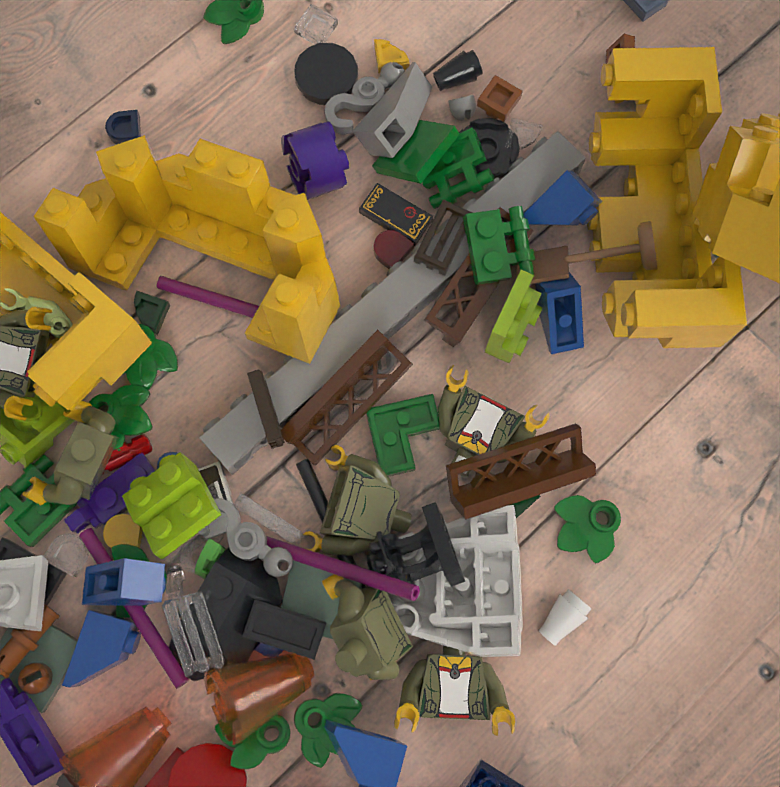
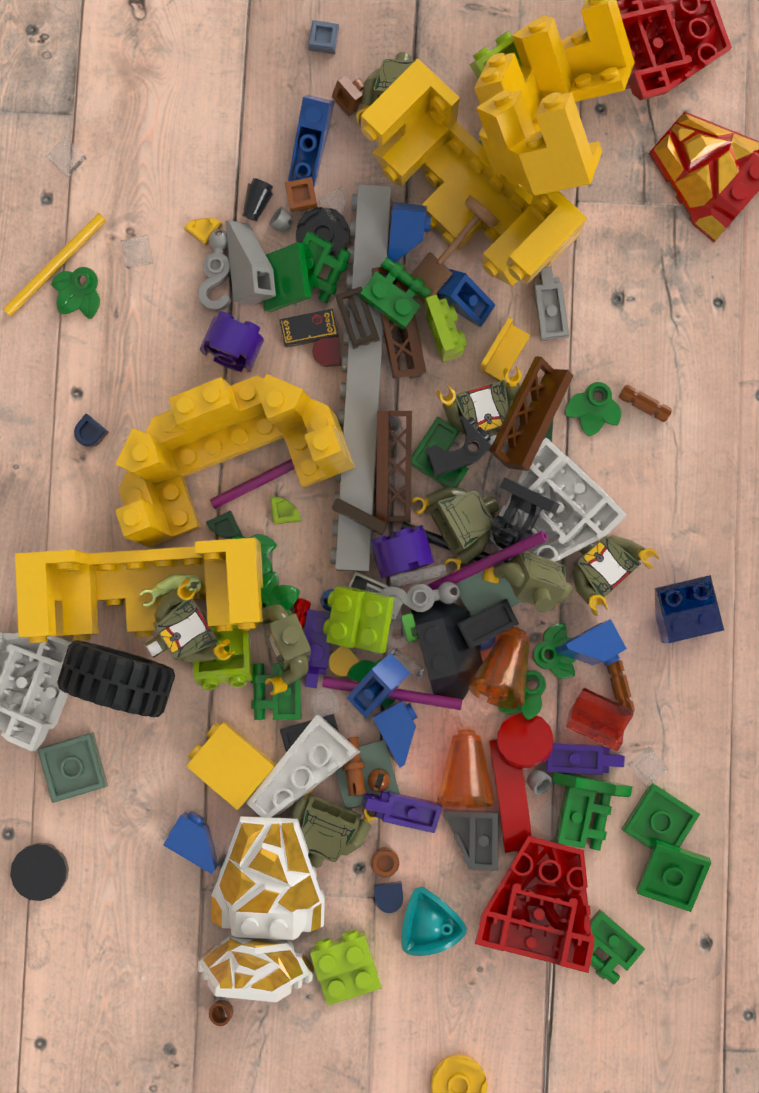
camera: 40 degrees left, 10 degrees up
(188, 664) = (463, 682): clear tile -> none
(213, 347) = (283, 511): none -> lime tile
(274, 481) = (402, 551): none -> dark purple brick
(325, 72) = (176, 277): black tile -> none
(393, 436) = (445, 462): none -> black tile
(552, 392) = (504, 351): none -> yellow panel
(556, 62) = (310, 137): none -> blue slope
(564, 617) = (628, 471): white cone -> none
(634, 394) = (550, 306): none -> light grey hinge
(642, 569) = (645, 403): none -> dark orange axle

